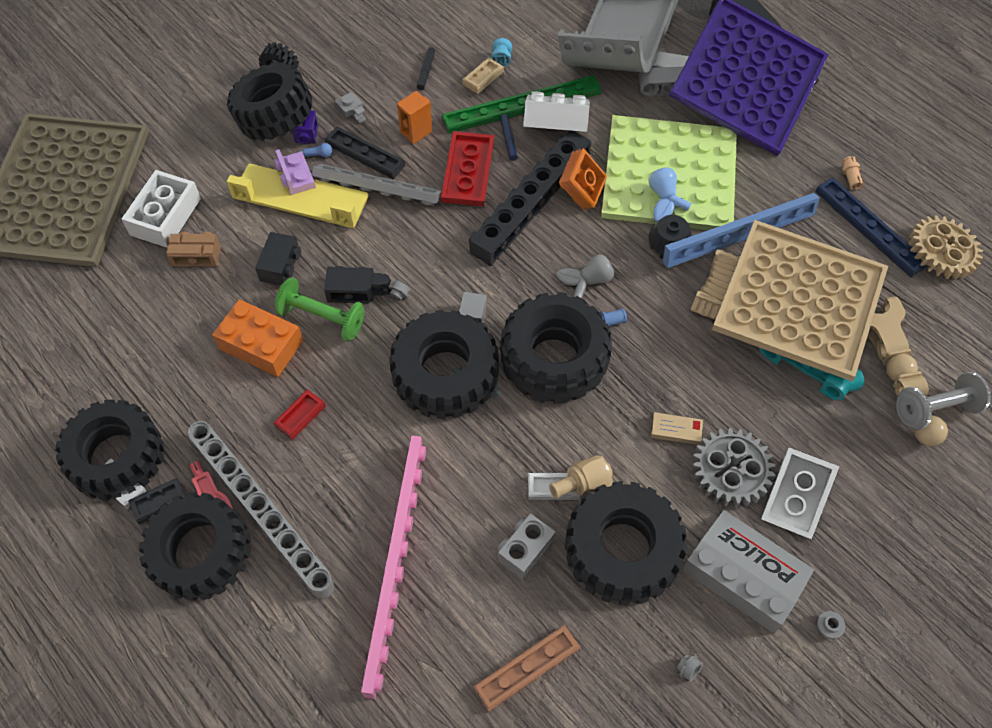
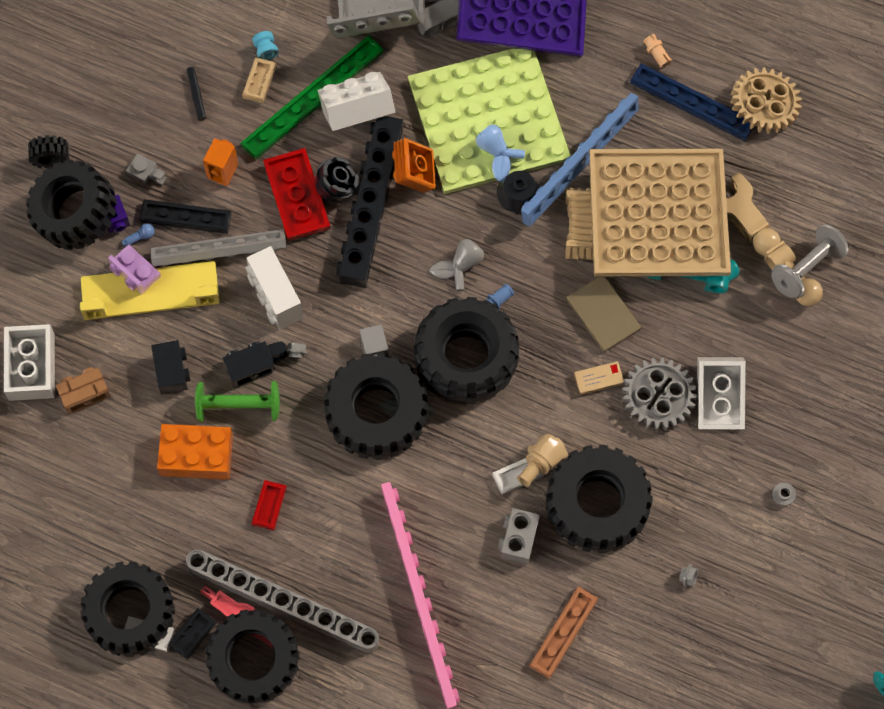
camera: 25 degrees left, 10 degrees up
(404, 229) = (273, 288): none -> white brick
(507, 165) = (336, 179): none -> black cone
(508, 136) = (315, 139): dark blue piece -> none
(707, 372) = (603, 313): none -> dark tan tile
(748, 571) = (704, 477): light grey slope -> none

